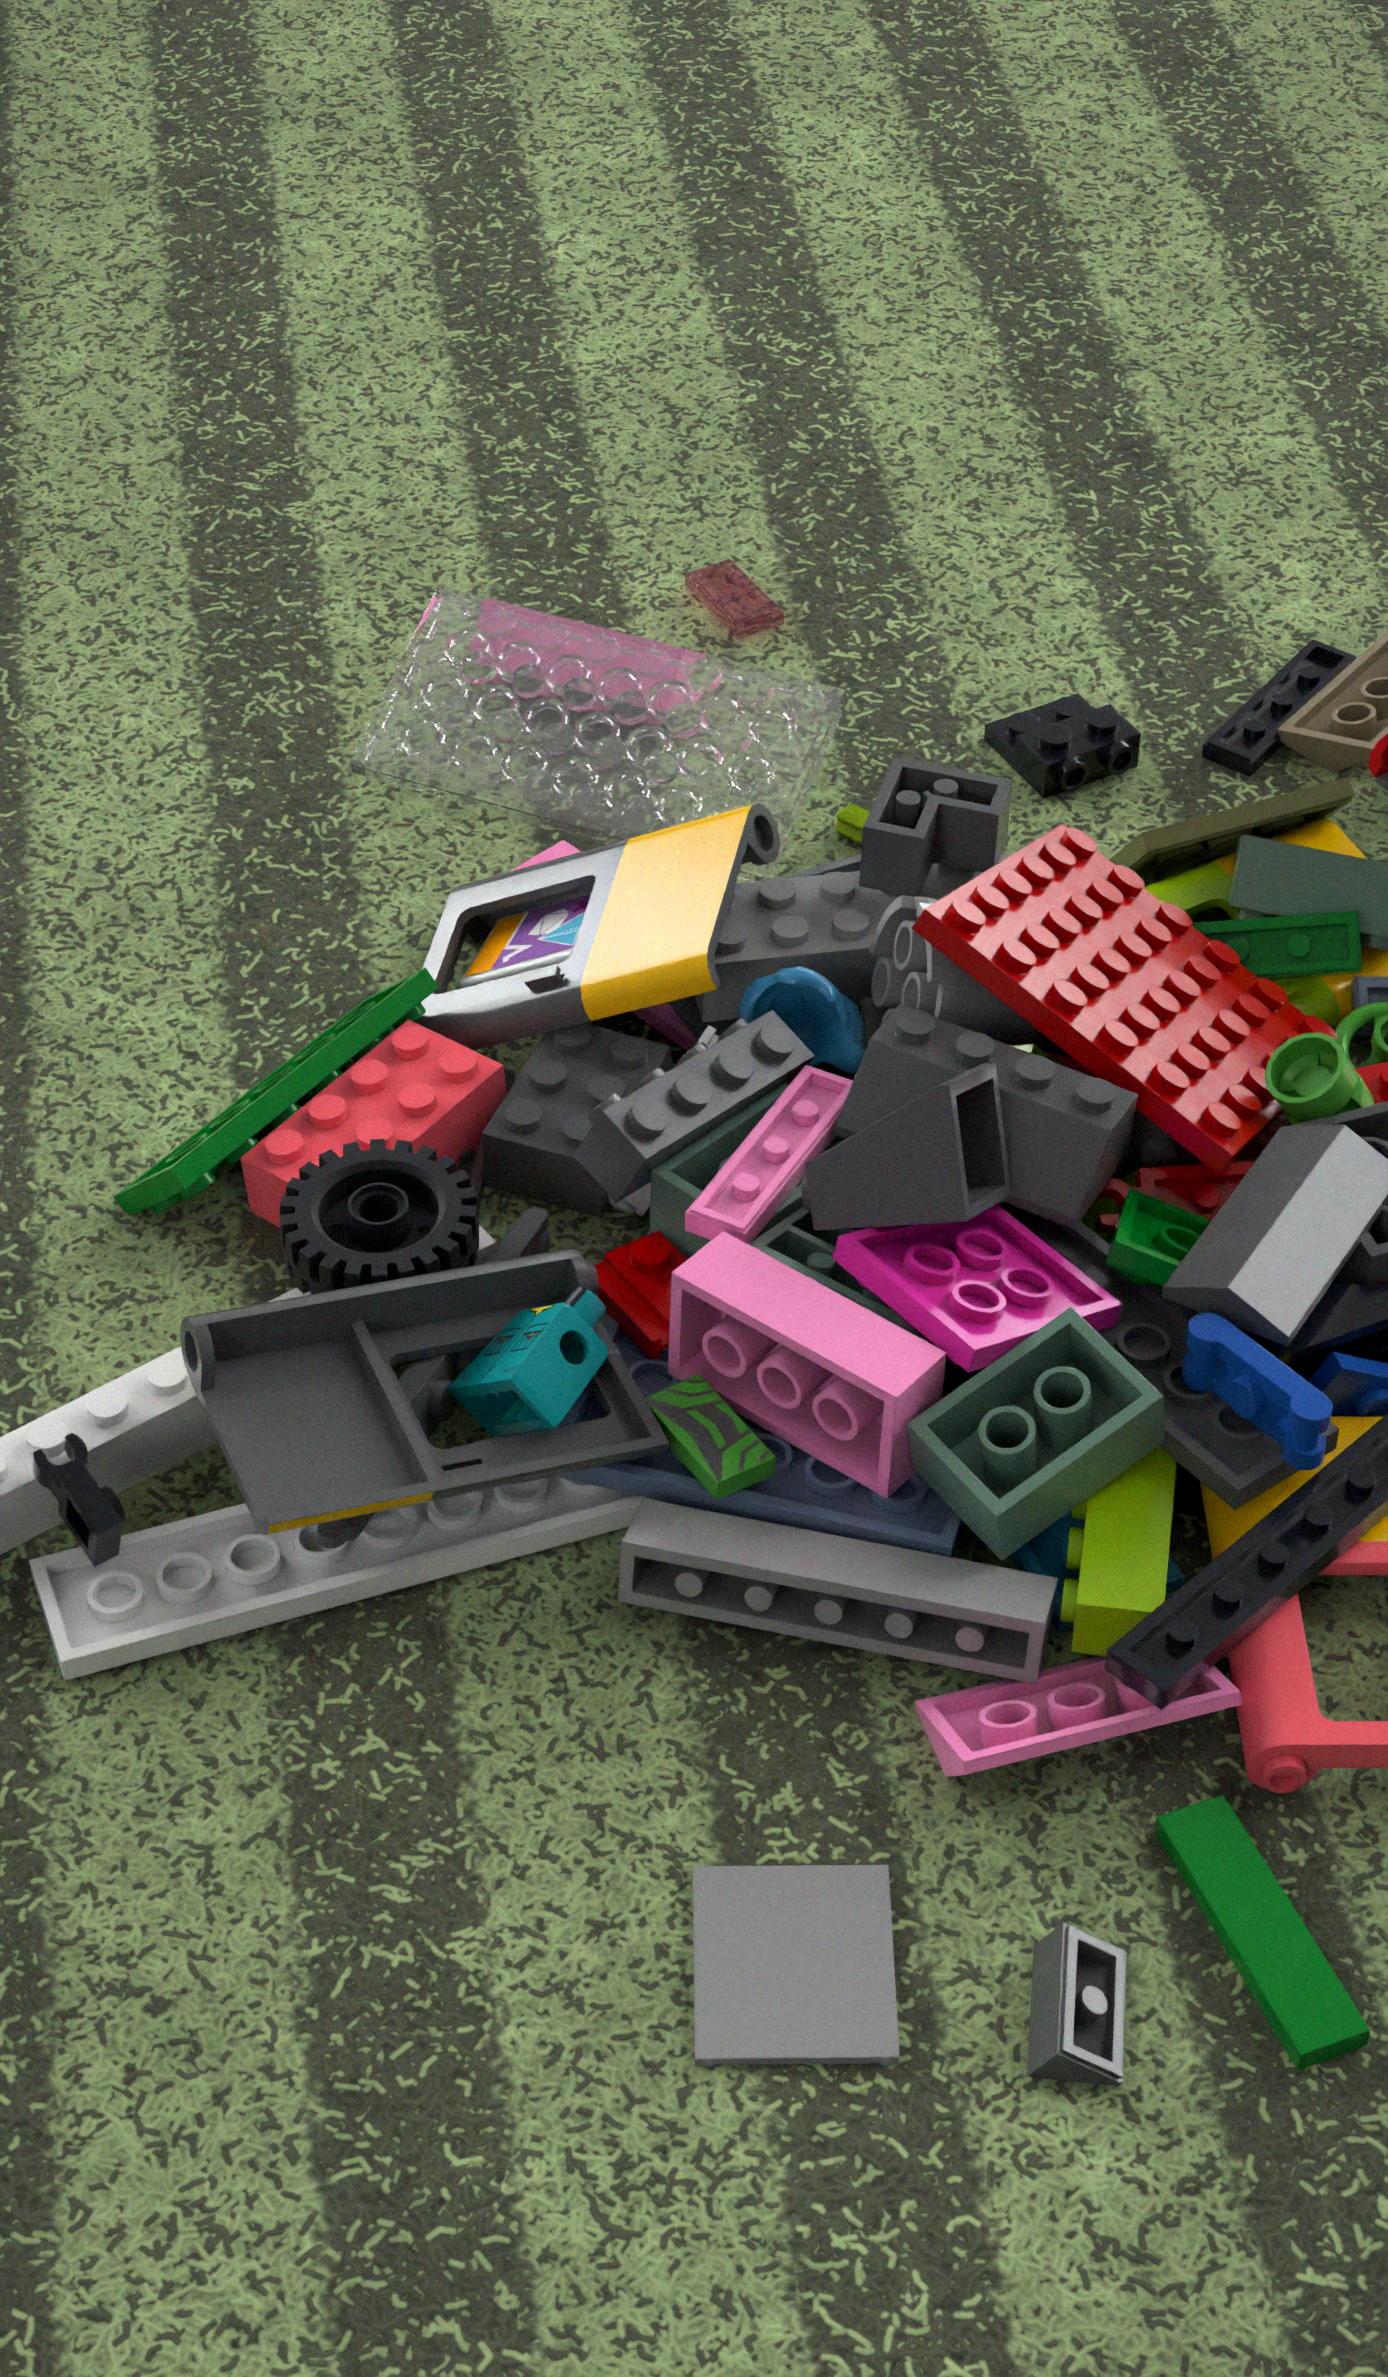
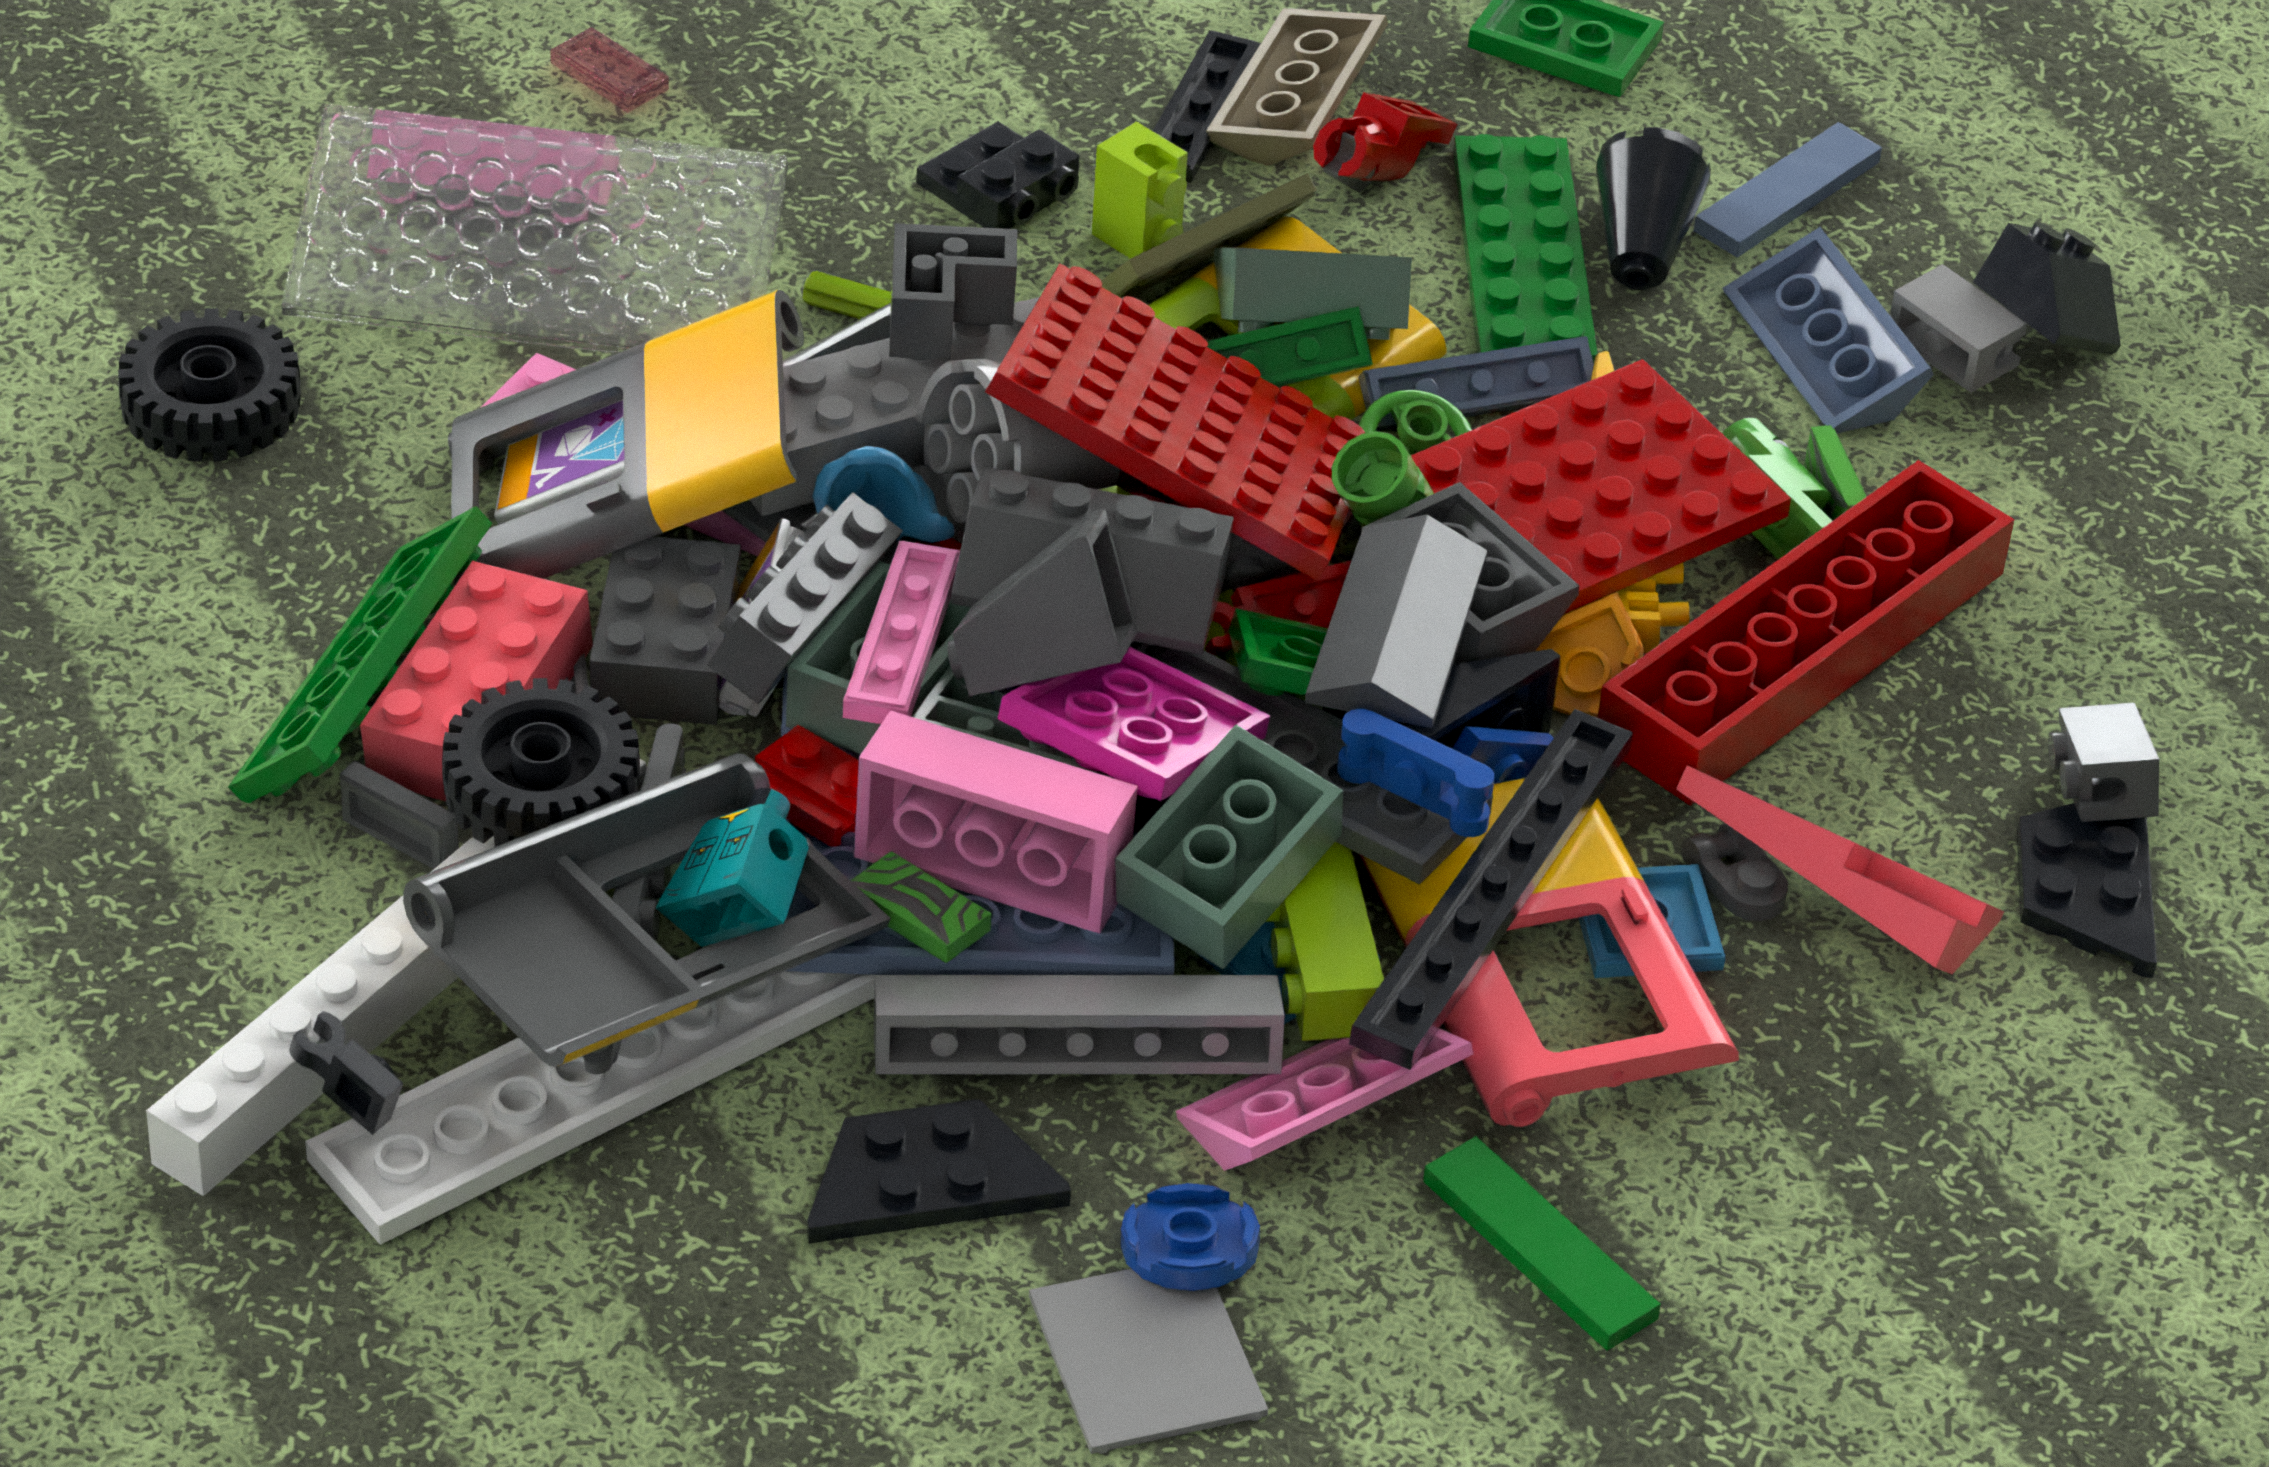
camera: 20 degrees left, 0 degrees up
(247, 1247) = (397, 815): none -> dark grey tile
(253, 823) = (209, 384): none -> black wheel
(633, 1715) = (929, 1171): none -> black wing
(879, 1845) = (1190, 1237): none -> blue tile
(1077, 2008) = (1405, 1338): dark grey slope -> none
(1182, 768) = (1138, 190): none -> lime brick

